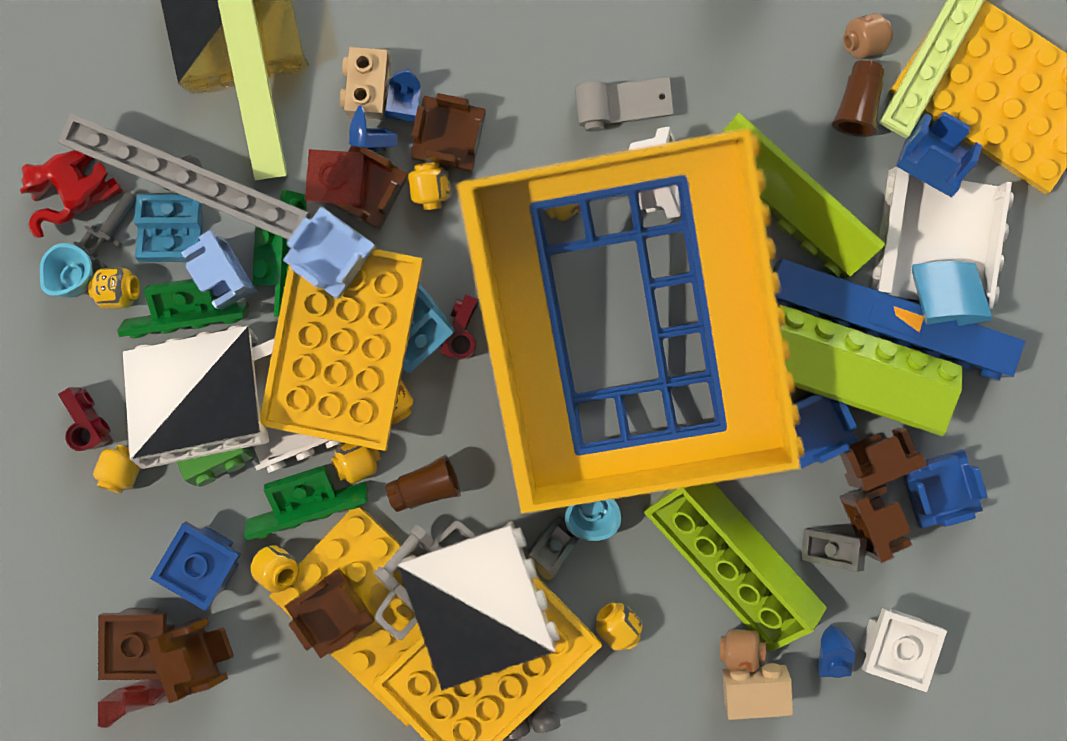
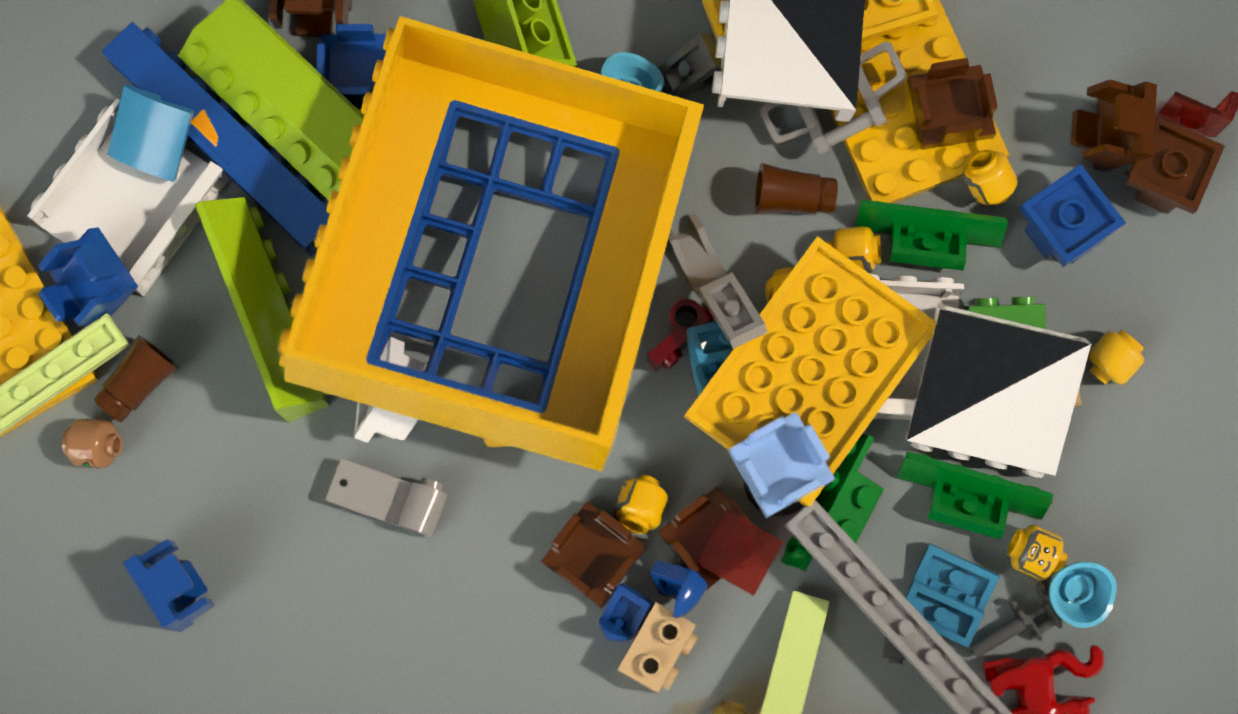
camera: 160 degrees left, 10 degrees down
(79, 406) = (1128, 440): dark red plate -> none
(217, 267) = (911, 512): light blue panel -> none
(446, 377) = (715, 286): none -> light grey piece

